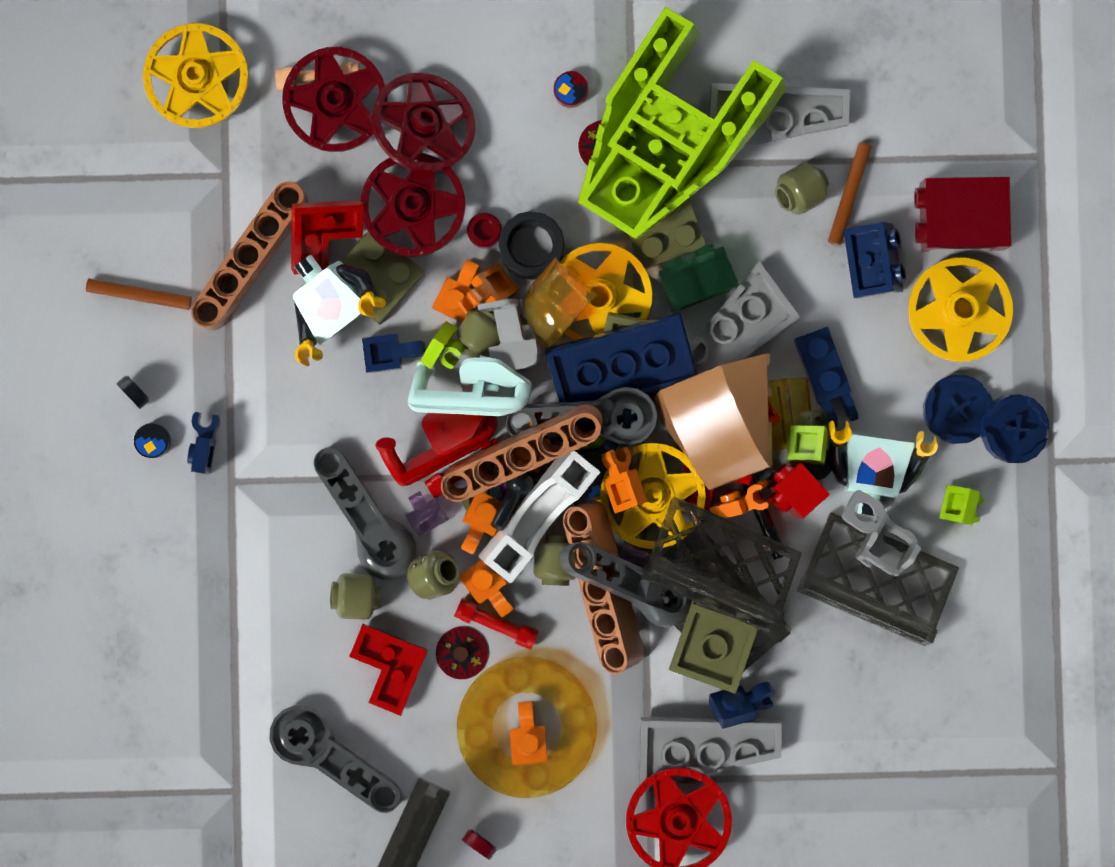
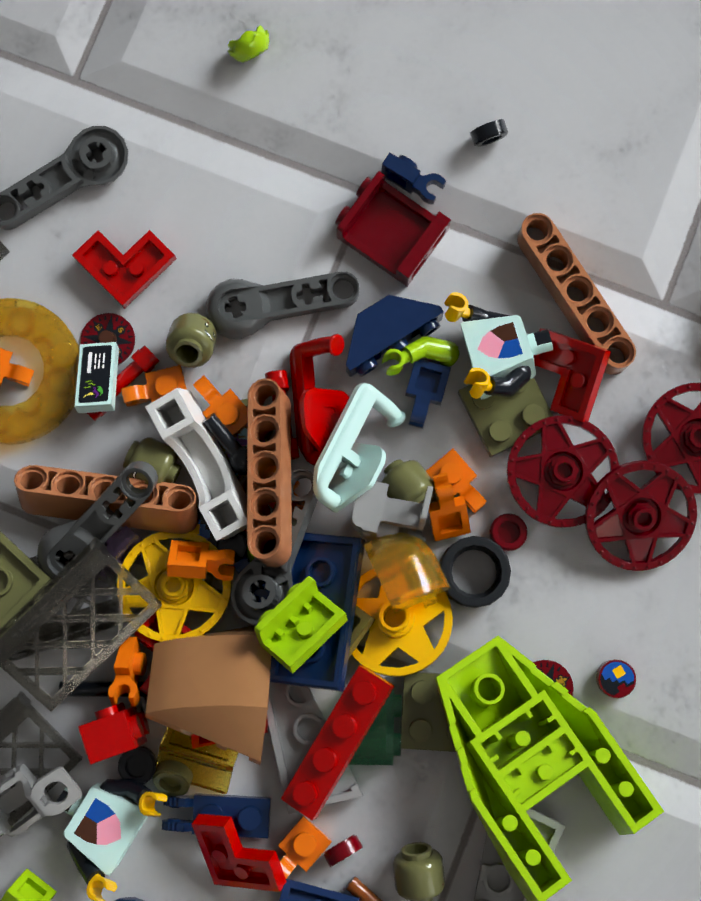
camera: 120 degrees right, 5 degrees down
(138, 294) = (581, 177): dark orange bar -> none
(139, 642) = (249, 45): none -> lime plate
(152, 440) = (435, 133): tile -> none
(257, 443) = (390, 229): none -> dark red panel
(351, 408) = (388, 326): none -> dark blue slope
(352, 365) = (424, 347): none -> lime arm
(355, 596) = (204, 259): olive head -> none
(425, 514) = (254, 359): clear purple tile -> none
(442, 346) = (407, 442): lime tile -> none
(500, 643) = (97, 377): none -> tile
(641, 370) = (299, 624): none -> lime bracket
(724, 299) = (337, 742): none -> red plate
(807, 444) = (154, 764): lime tile -> none
(810, 259) = (342, 850): none -> dark red tile
(822, 295) = (302, 846): none -> orange plate
(859, 348) = (232, 863): none -> red plate

